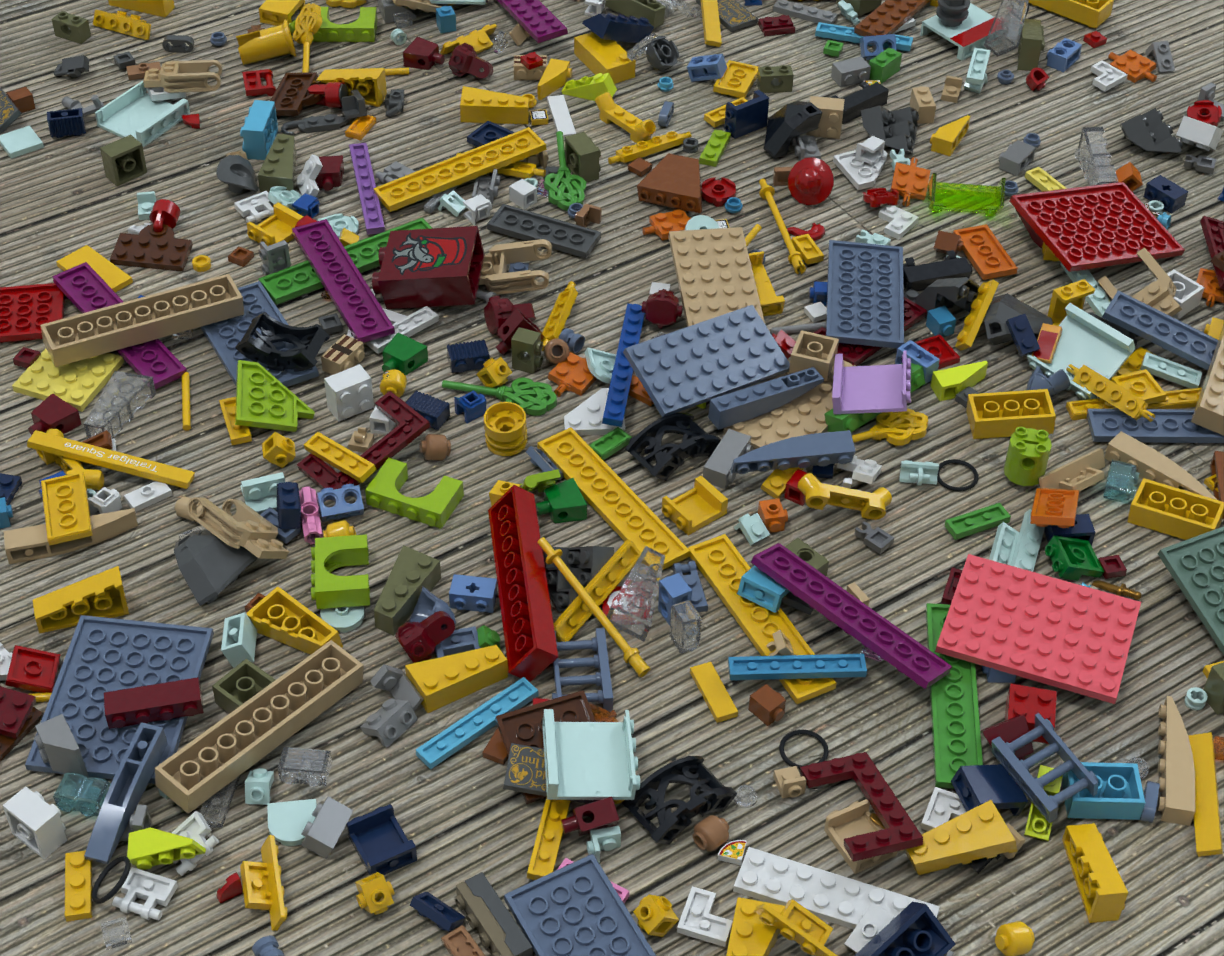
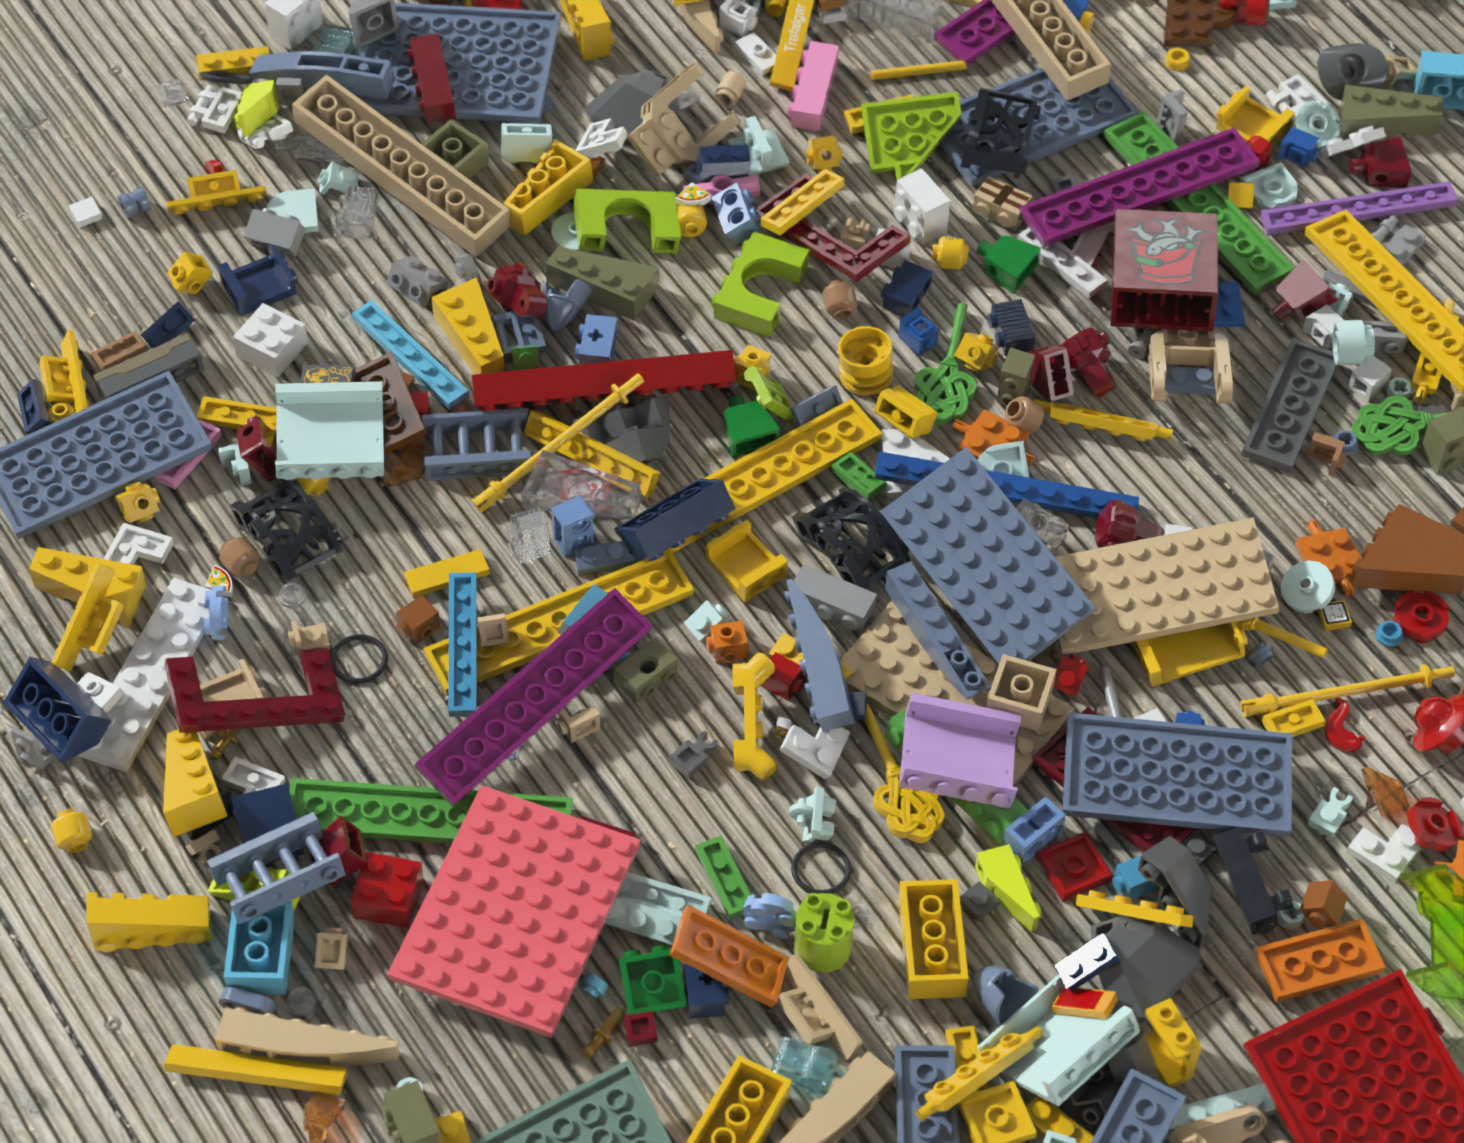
camera: 90 degrees right, 10 degrees up
(198, 456) = (814, 86): none -> bright pink brick
(241, 256) = (1197, 95): dark orange tile -> none
(256, 584) = (602, 138): none -> white plate
(324, 523) = (693, 195): none -> tile
(449, 210) = (1303, 293): none -> torso
(459, 824) = (270, 340): none -> white brick
(504, 188) = (1352, 342): none -> light aqua piece
(553, 411) = (905, 412): none -> yellow brick
(573, 340) = (1052, 436): sand blue wheel -> none
(659, 529) = (676, 518): none -> dark blue slope
(780, 838) = (217, 613): none -> light blue plate
(856, 214) = (1386, 790): none -> clear orange slope
(1013, 489) = (770, 914): none -> light blue plate
(1088, 747) = (331, 949): none -> tan bracket

